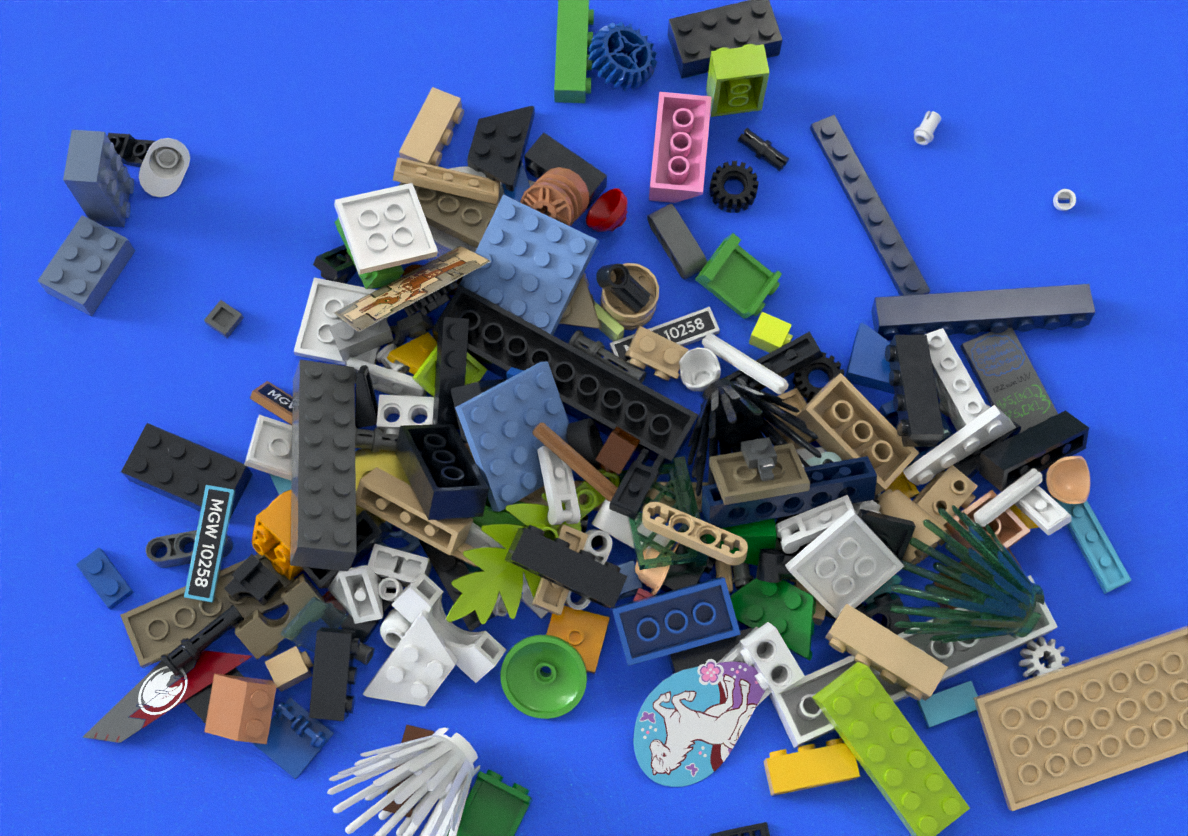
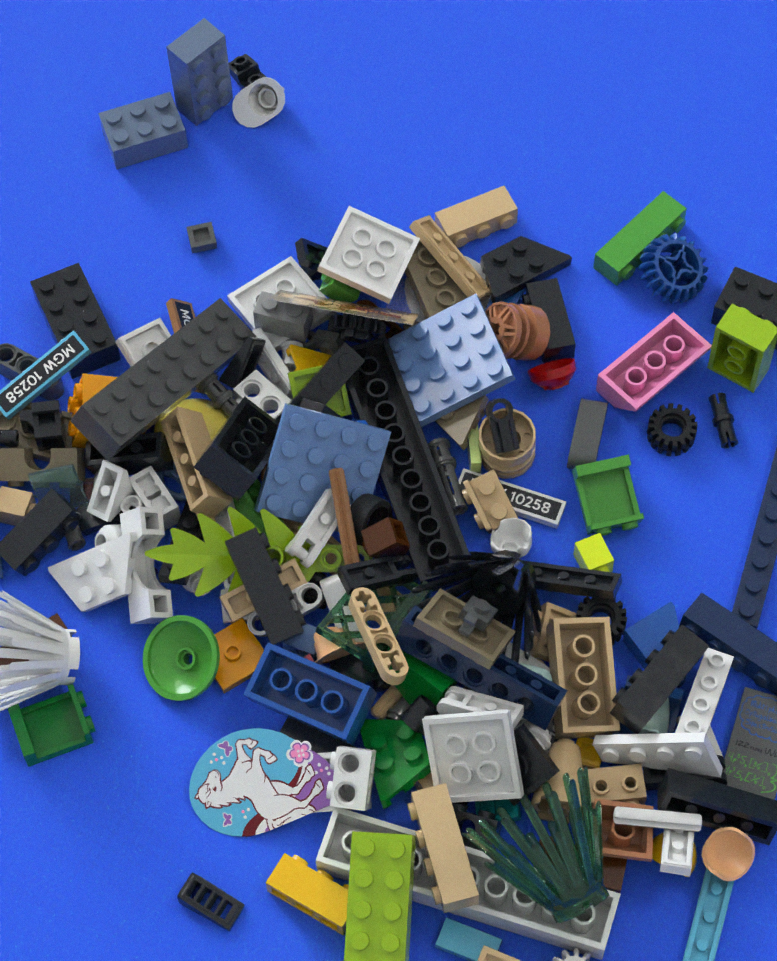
camera: 45 degrees right, 10 degrees down
(745, 364) = (548, 560): white axle -> none

